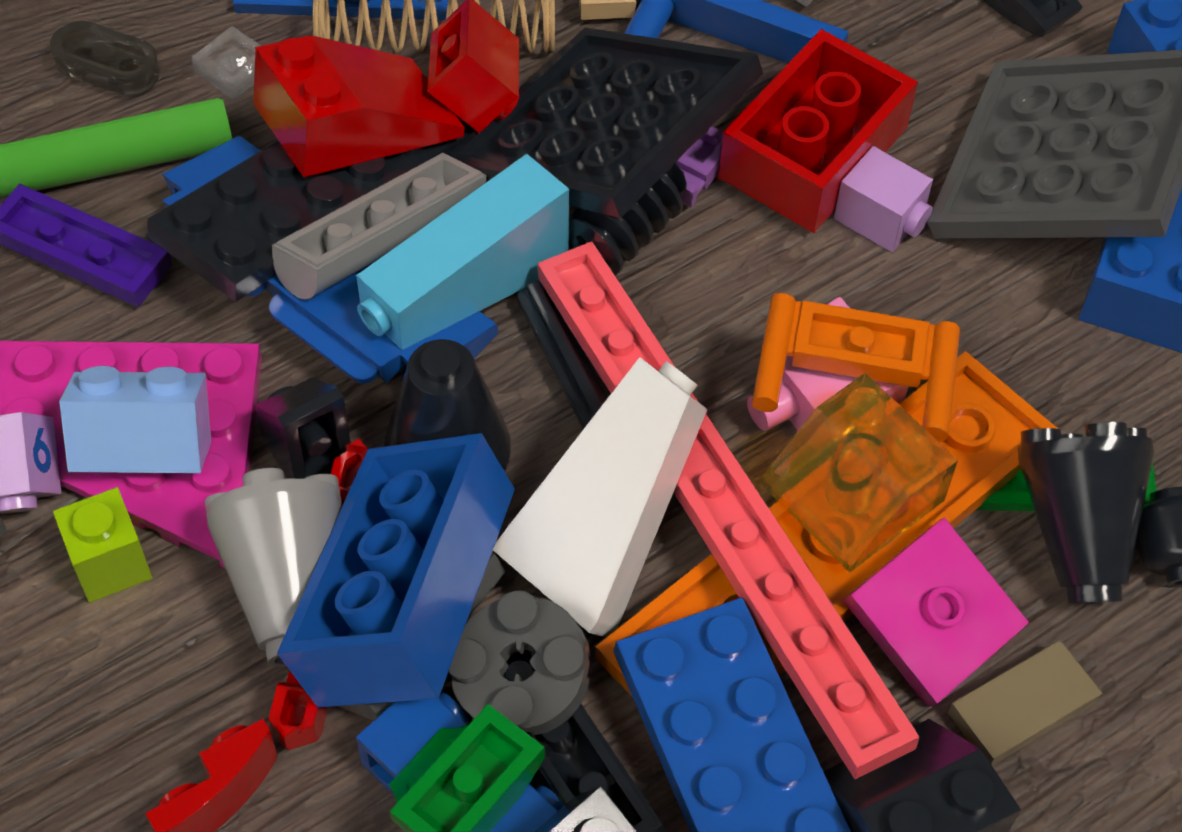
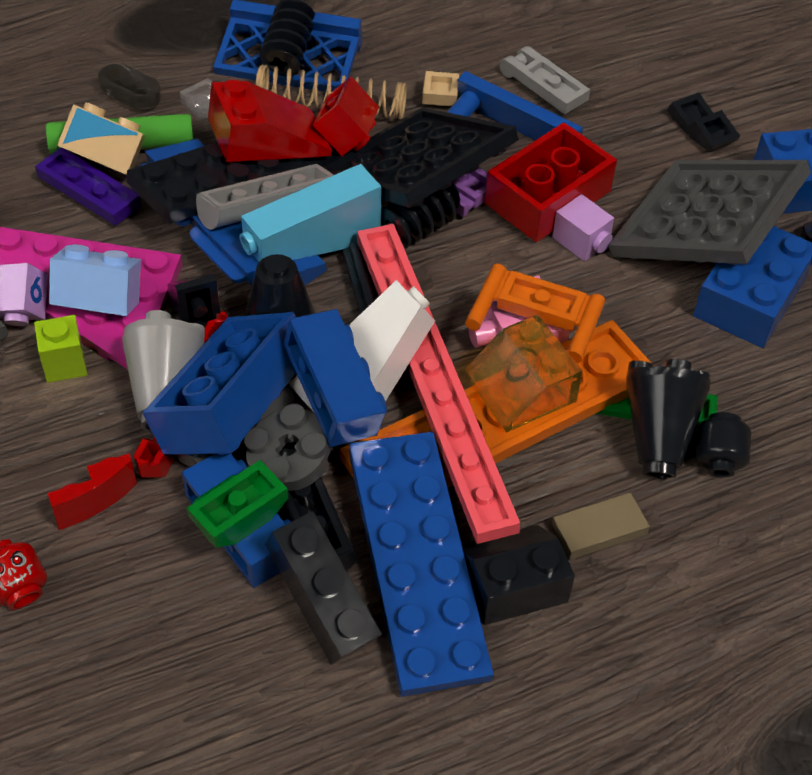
camera: 10 degrees right, 5 degrees down
(87, 164) = (102, 139): none -> tan brick
(575, 539) = (334, 377): none -> blue brick
(936, 612) = (555, 463): dark pink plate -> none

